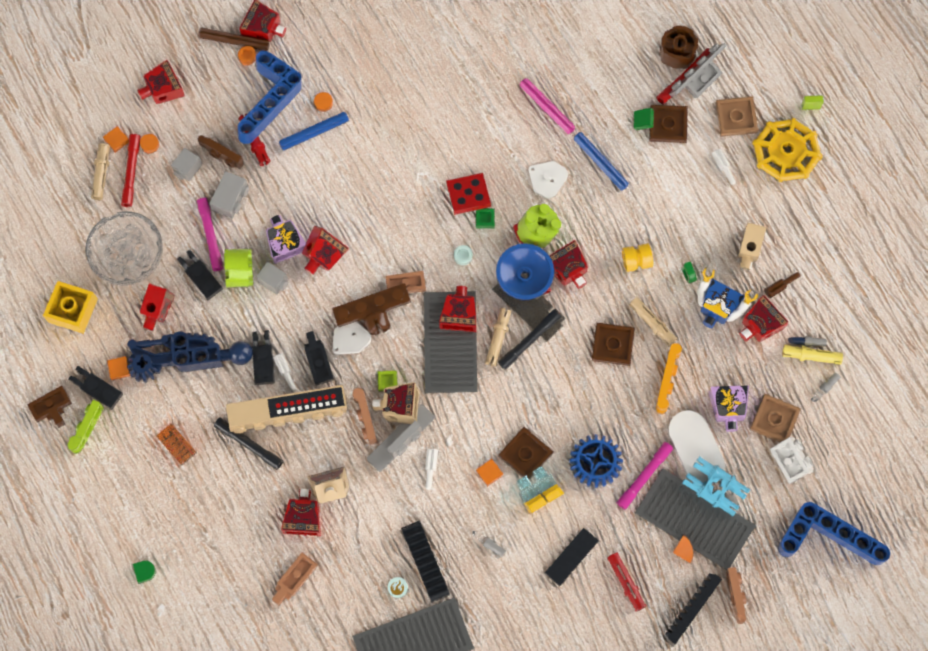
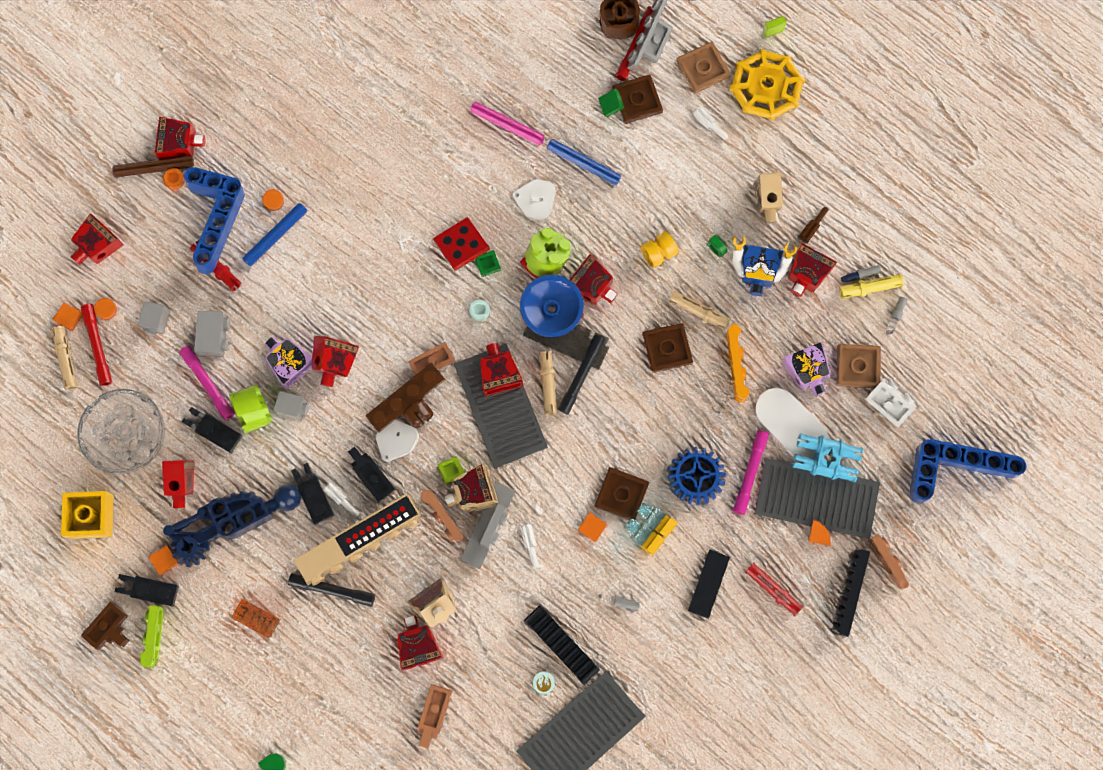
camera: 20 degrees left, 5 degrees up
(218, 151) = (182, 291): reddish brown hinge -> none

